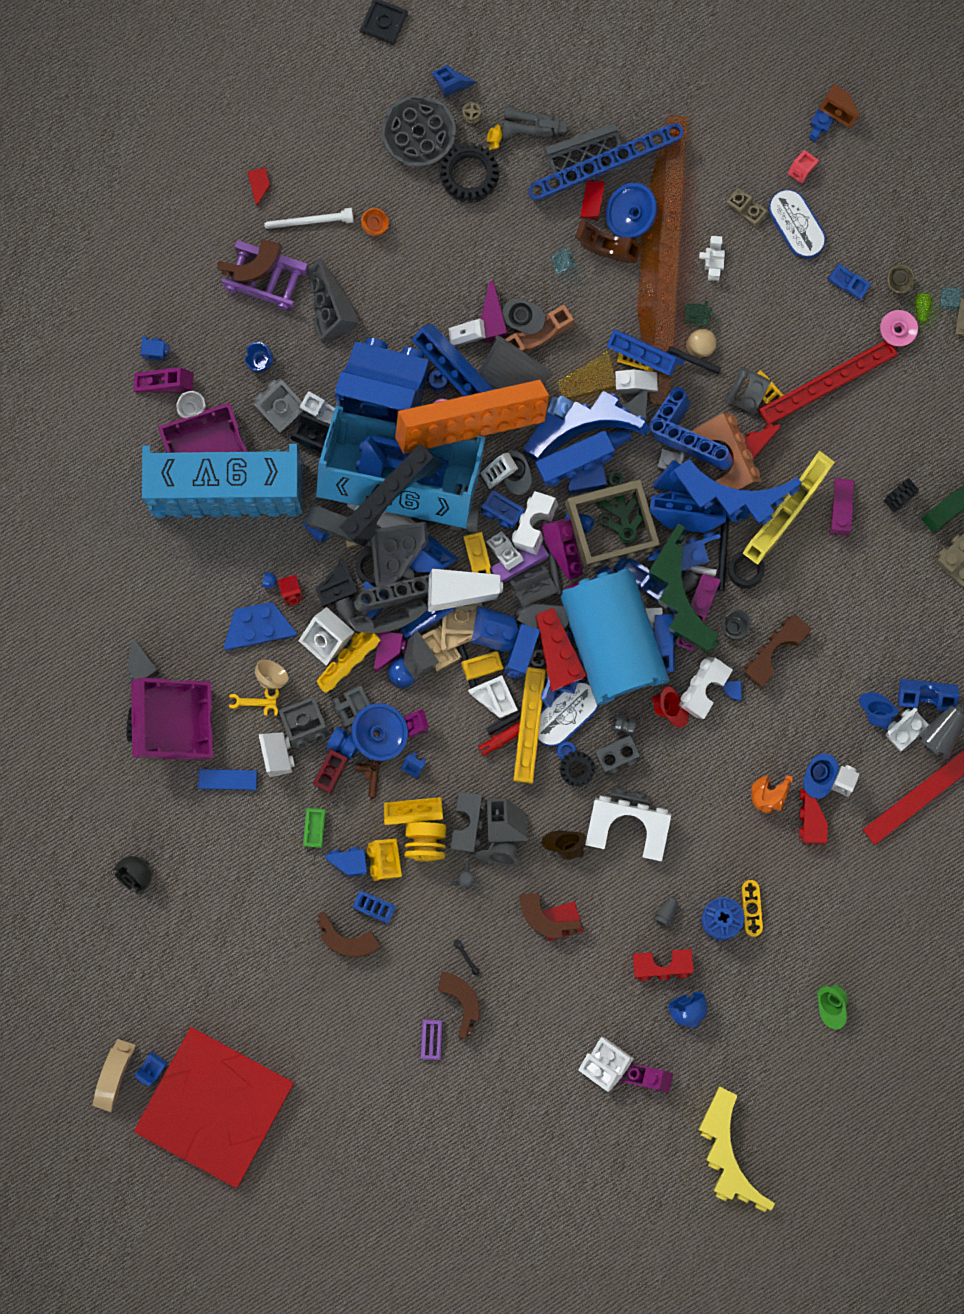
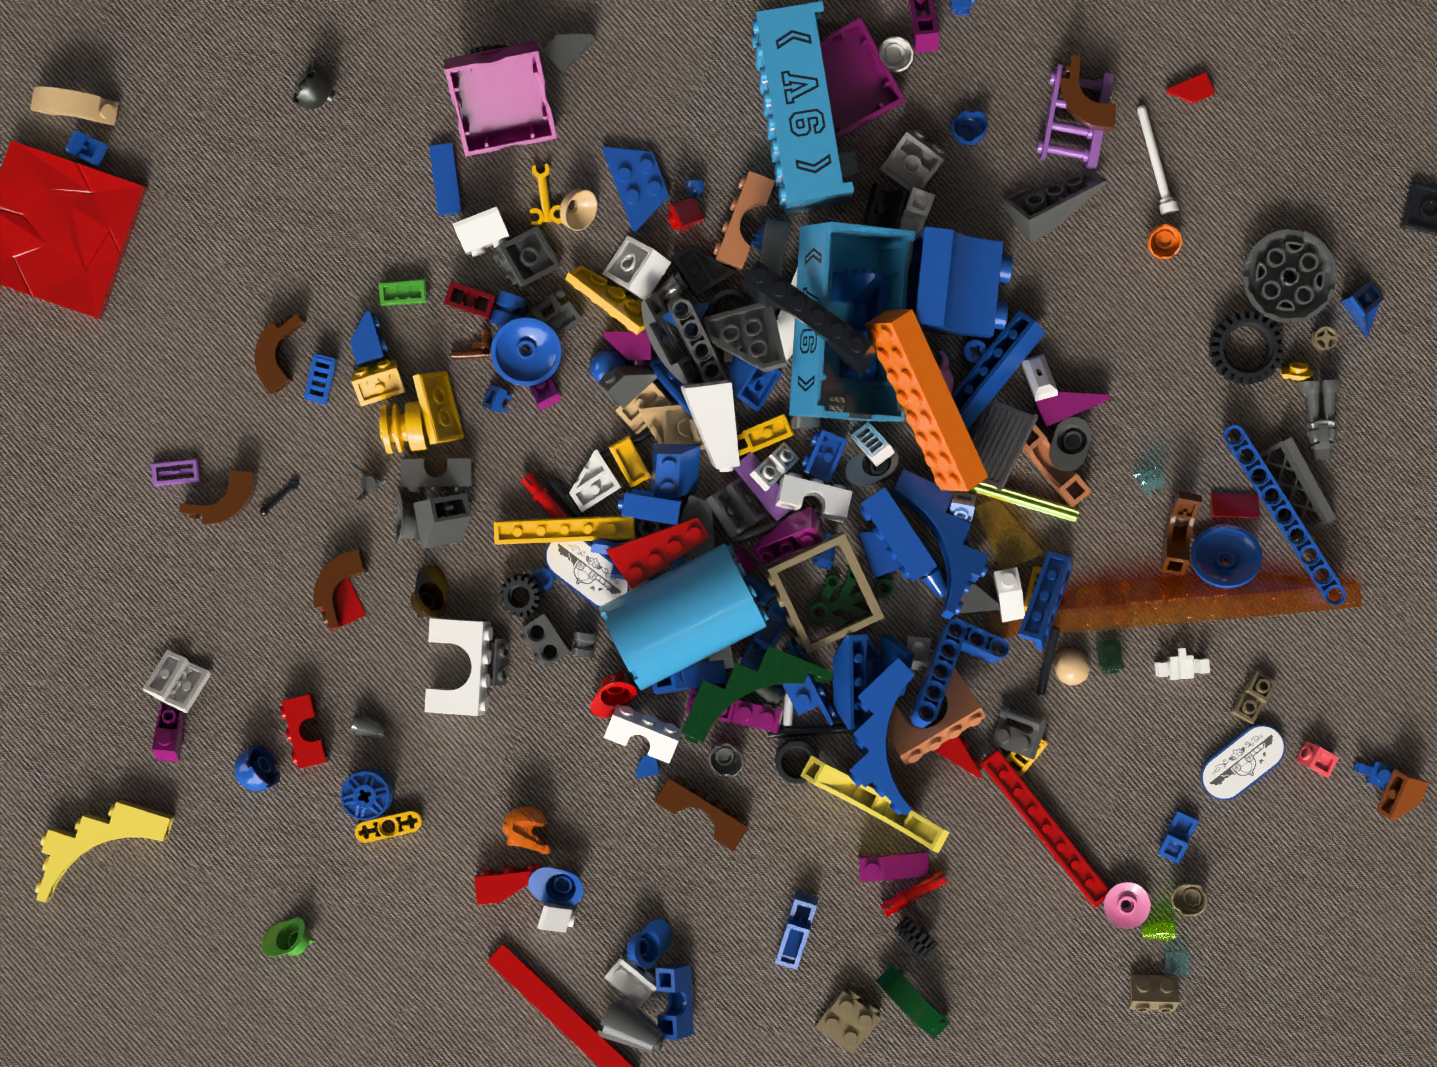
camera: 80 degrees right, 10 degrees up
(323, 556) = (755, 192): none -> nougat arch
(564, 356) = (1028, 501): none -> lime axle
(870, 501) = (913, 893): none -> red pin
(883, 590) = (796, 930): none -> blue slope

